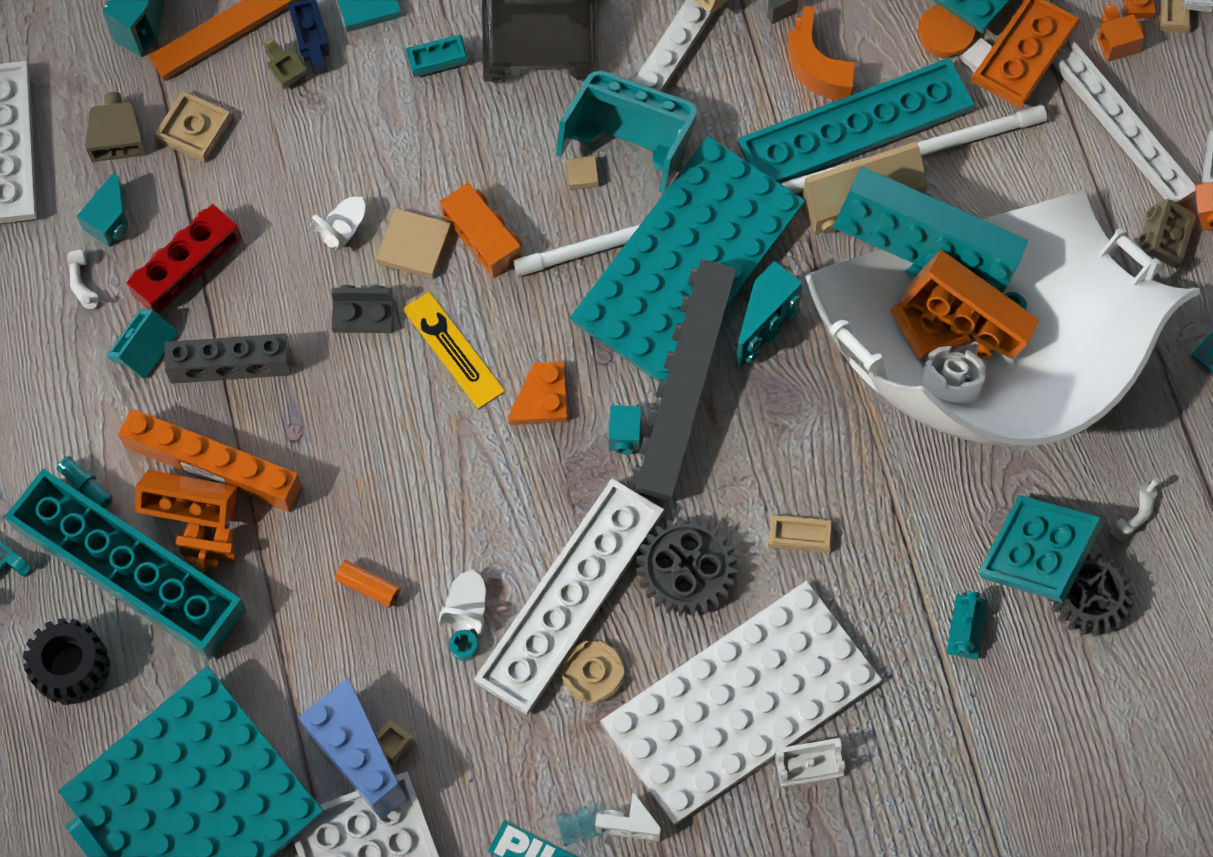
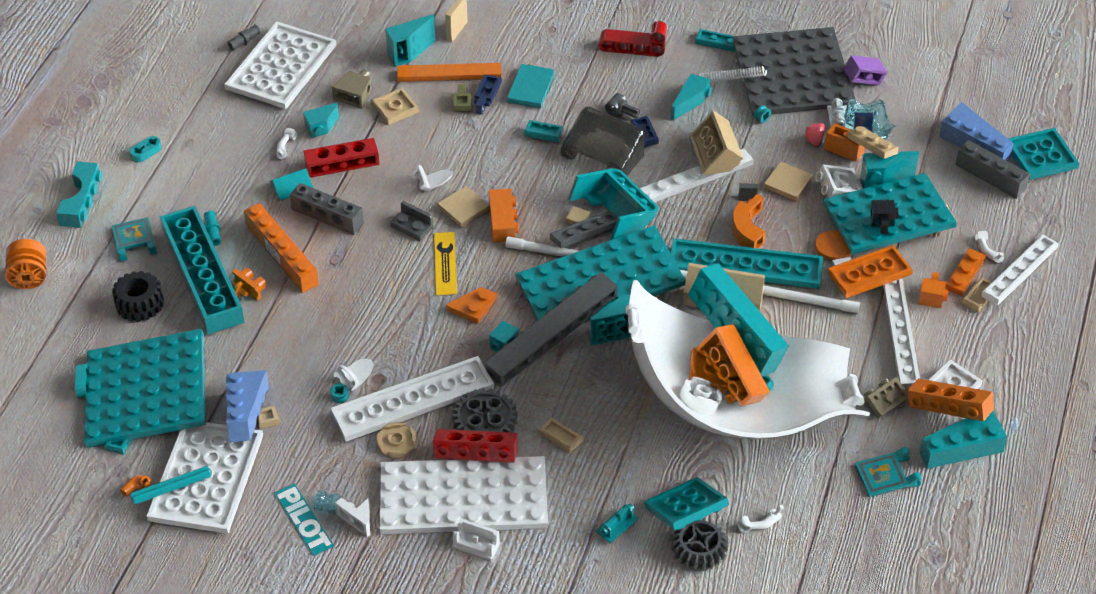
camera: 30 degrees right, 20 degrees down
(185, 499) = (254, 256): orange brick -> none
(367, 583) = (313, 340): orange piece -> none
(612, 191) = (584, 229): none -> dark grey plate
(713, 623) = (475, 445): none -> red brick

